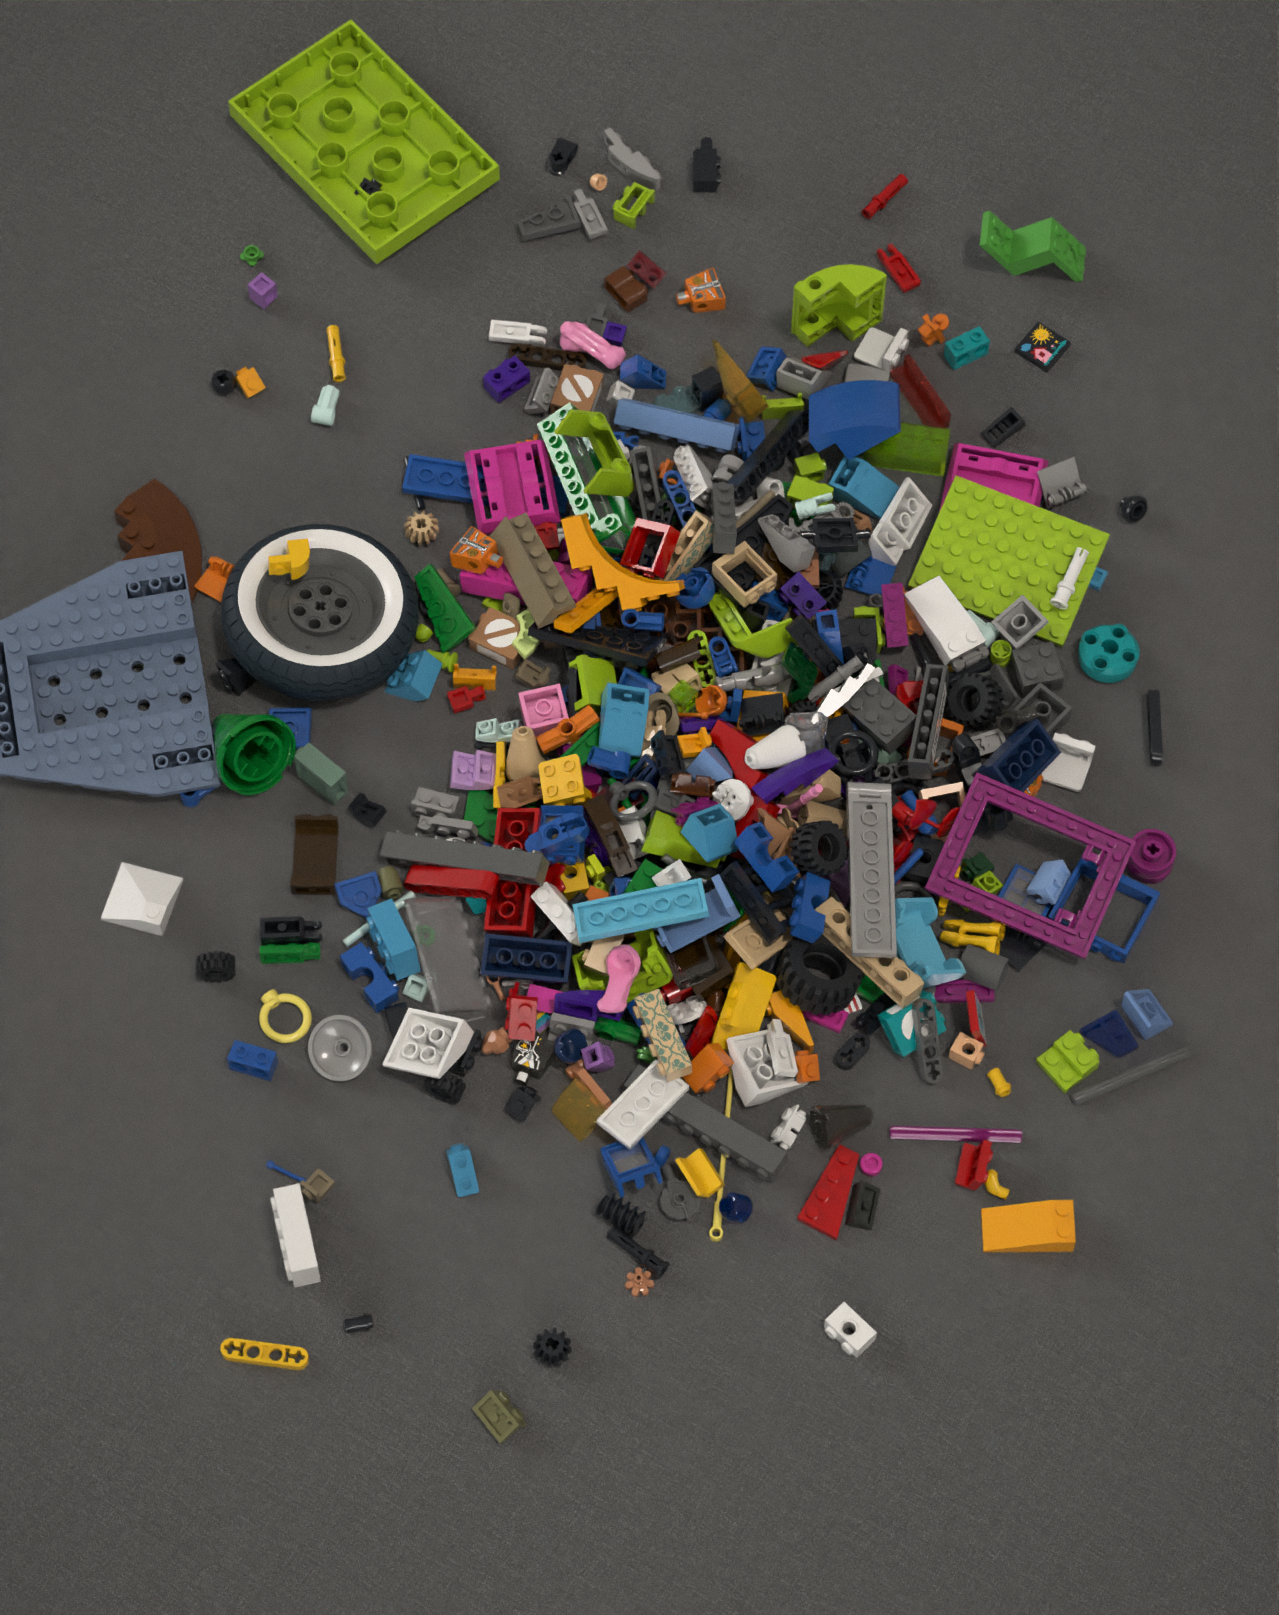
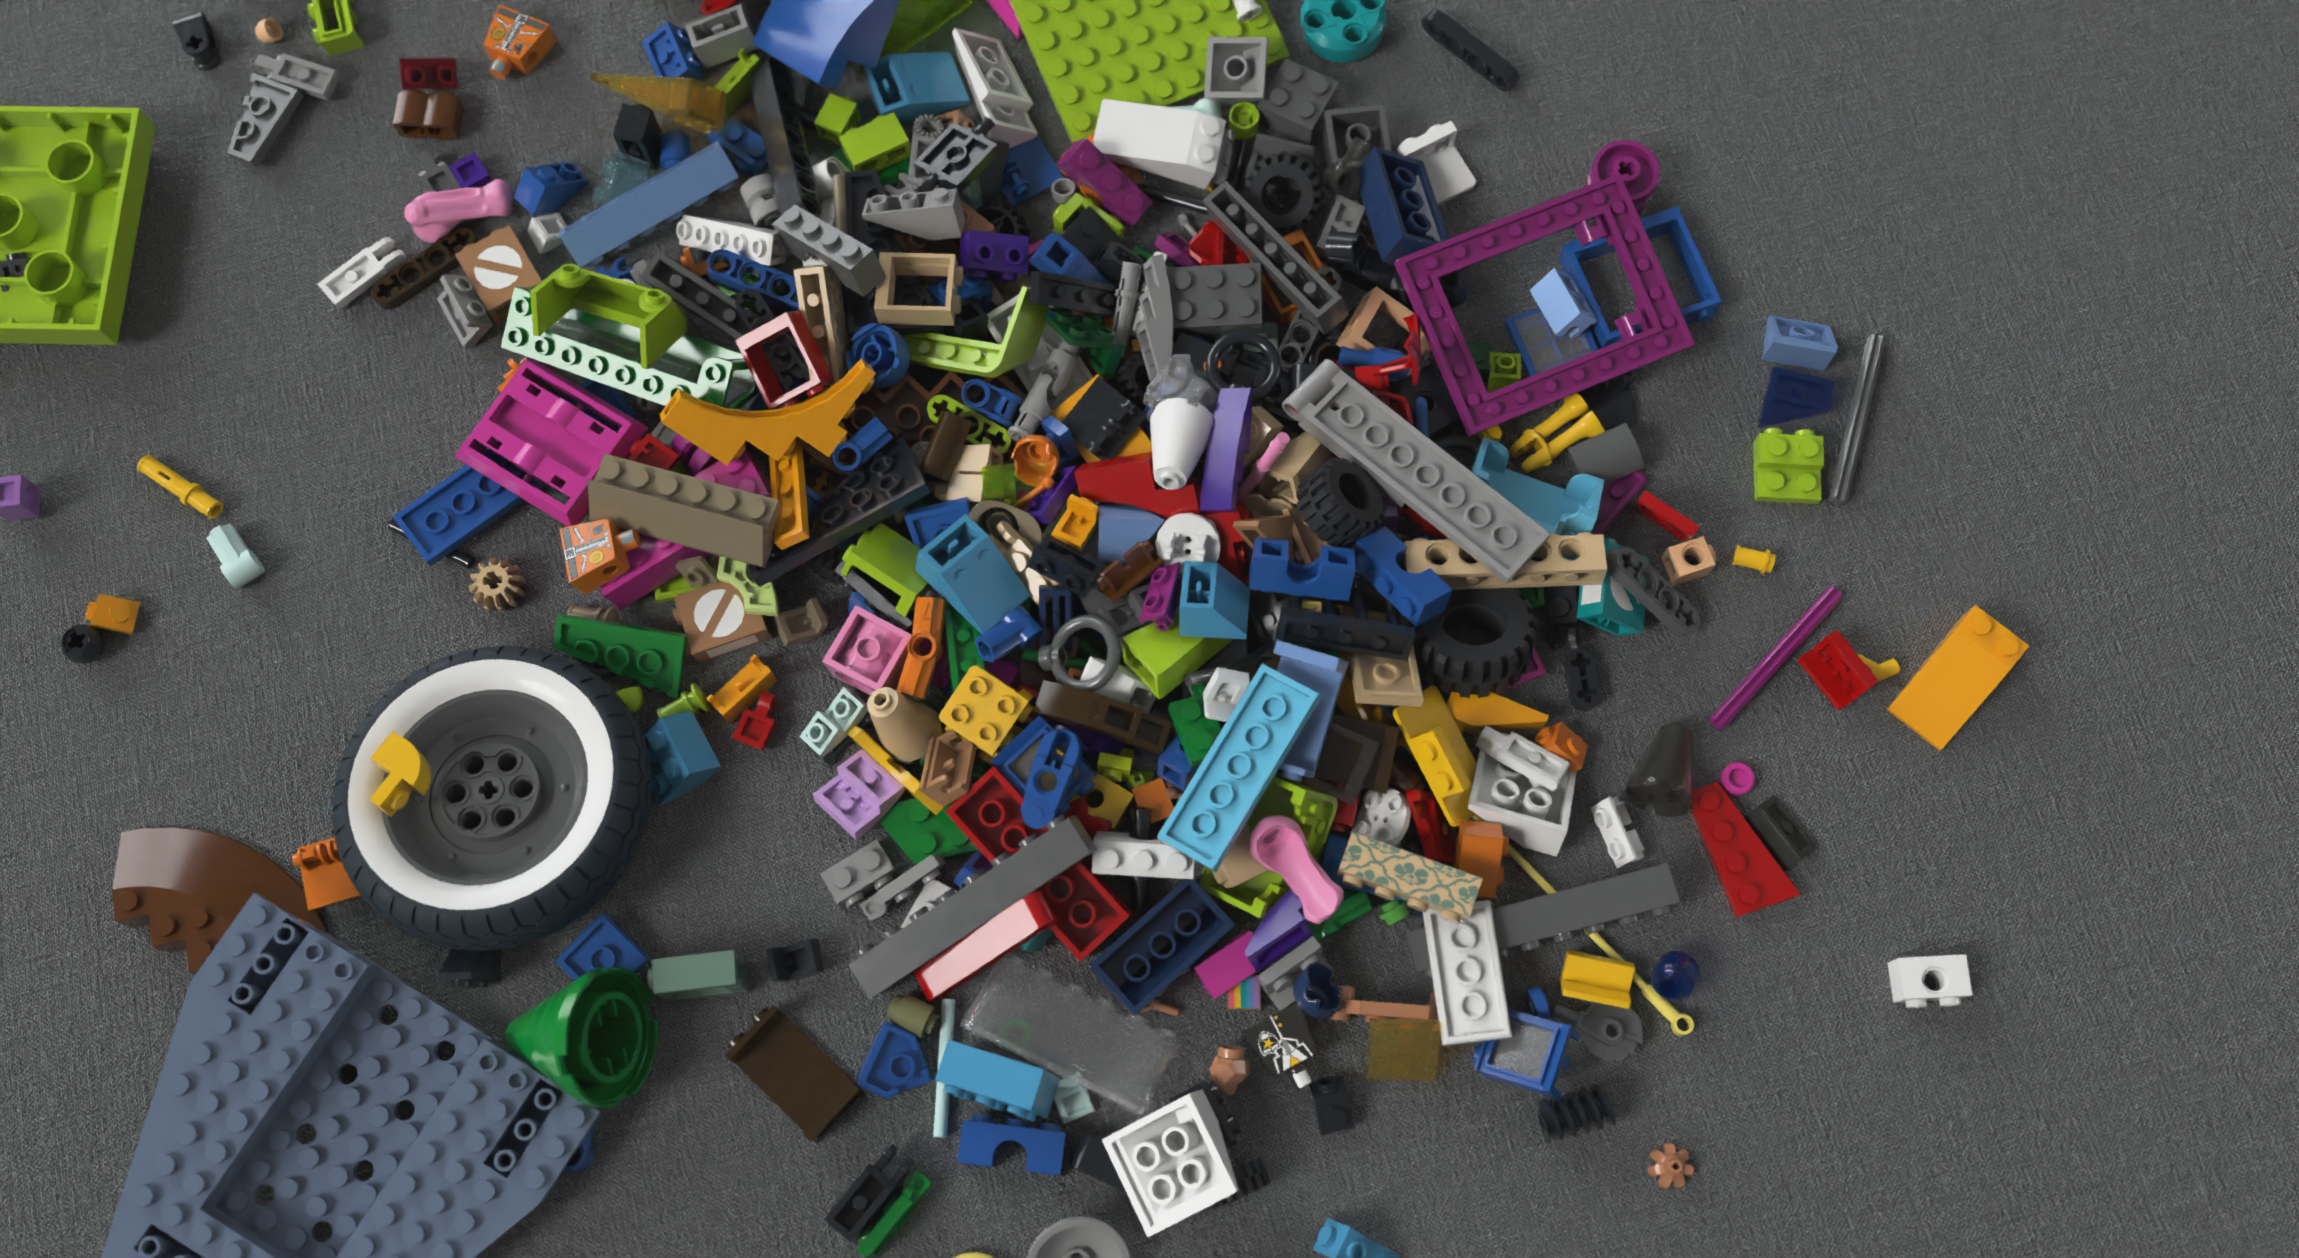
camera: 45 degrees left, 10 degrees up
(506, 379) = (406, 332): dark purple brick -> none
(521, 1015) = (1235, 1015): bracket -> none
(603, 1057) = (1359, 964): medium lavender brick -> none
(644, 1260) = (1650, 1132): black pin -> none
(810, 507) = (895, 153): light aqua hinge -> none

